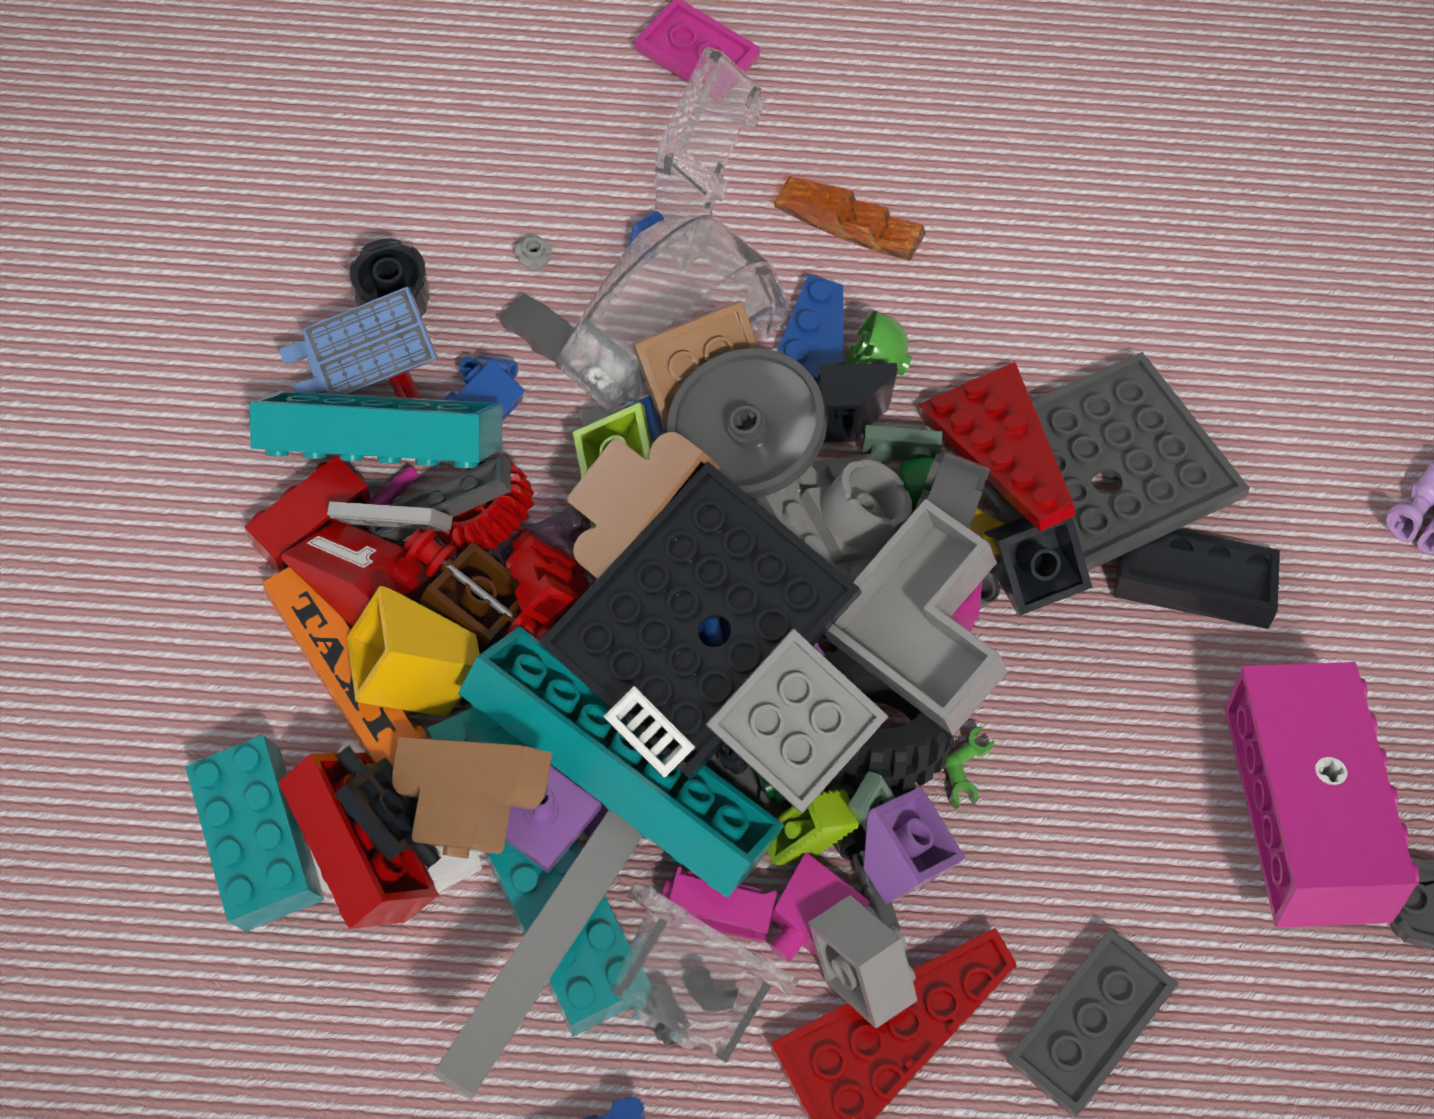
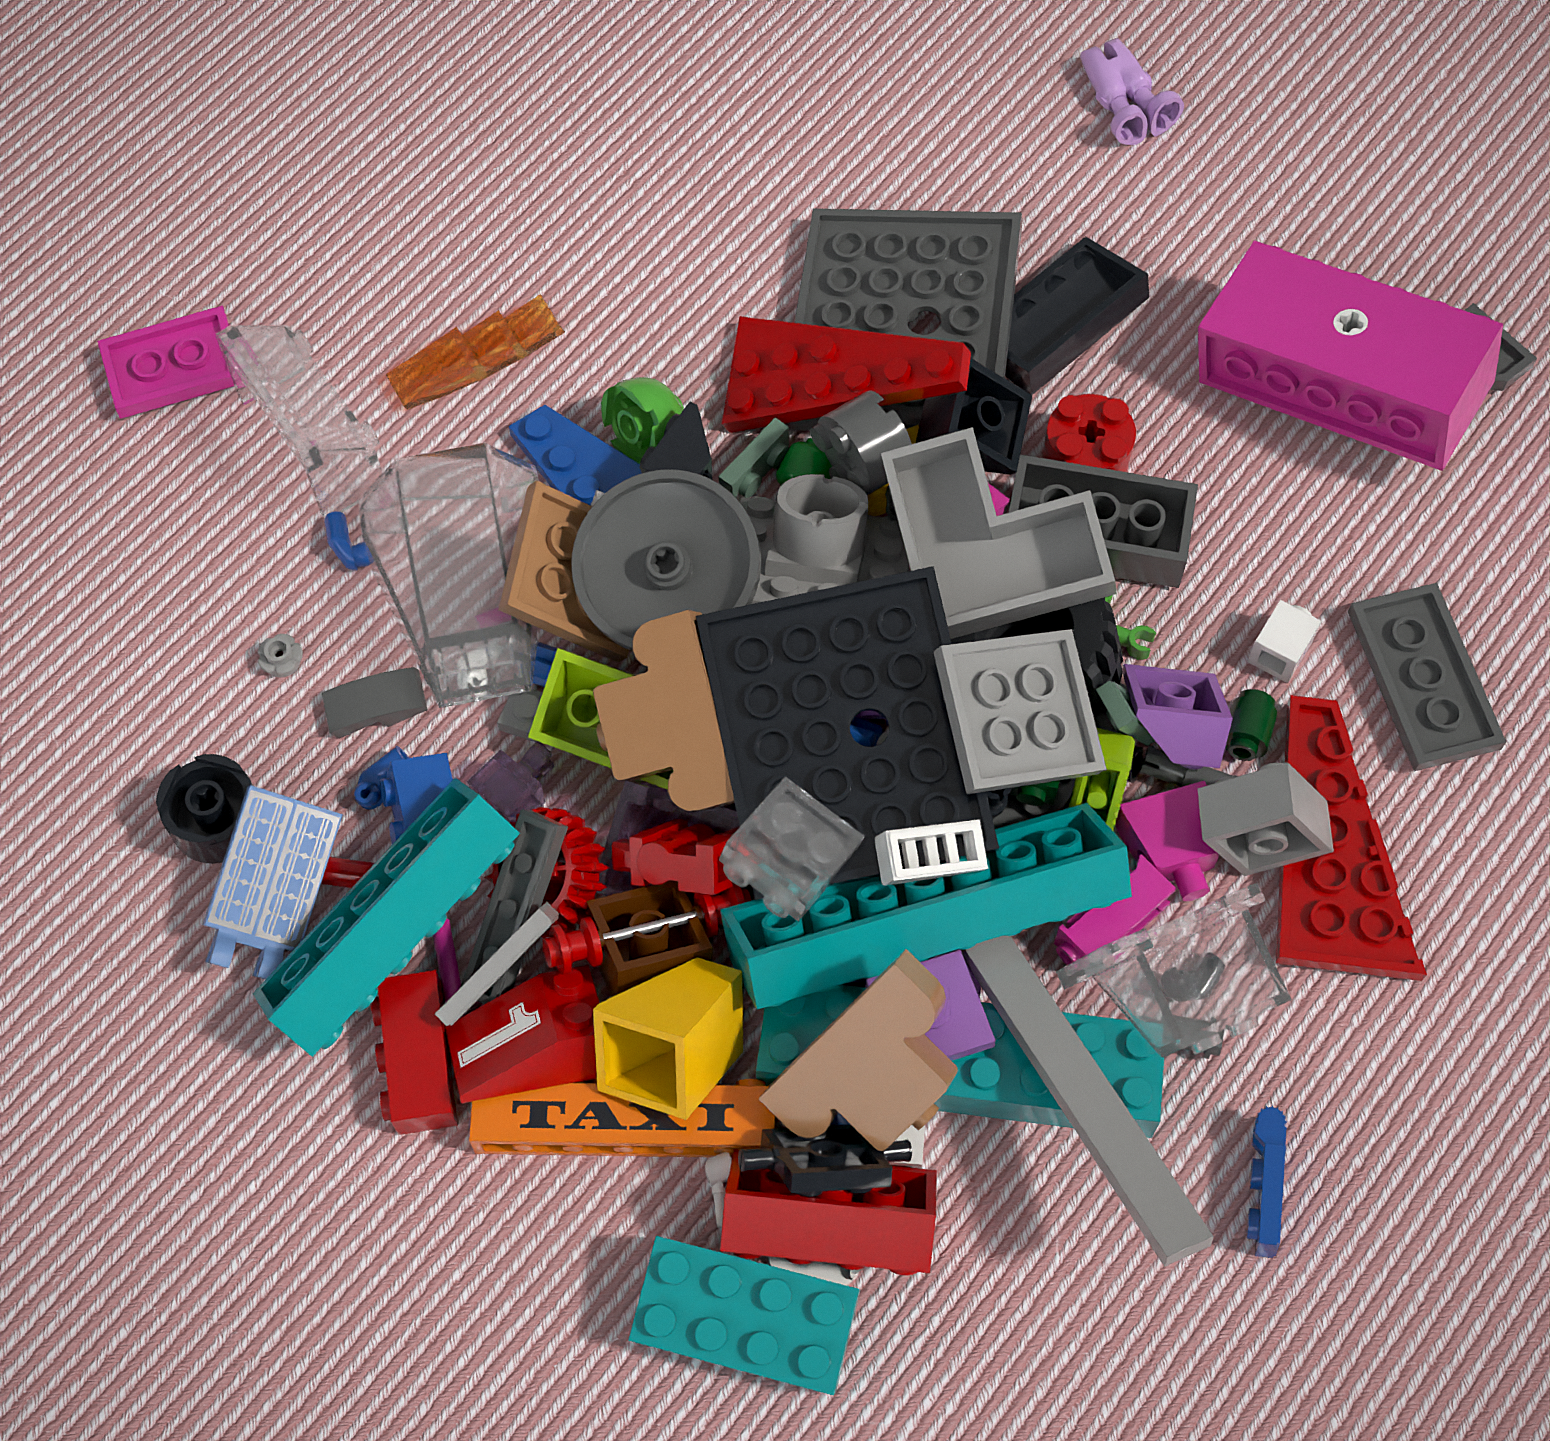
camera: 50 degrees left, 0 degrees up
(535, 448) = (513, 785): none -> clear purple brick
(580, 635) = (789, 850): none -> clear plate
(949, 912) = (1251, 724): none -> dark green brick
(1041, 707) = (1140, 516): none -> dark grey brick
(1041, 897) = (1284, 640): none -> white brick
(1096, 657) = (1091, 432): none -> red brick

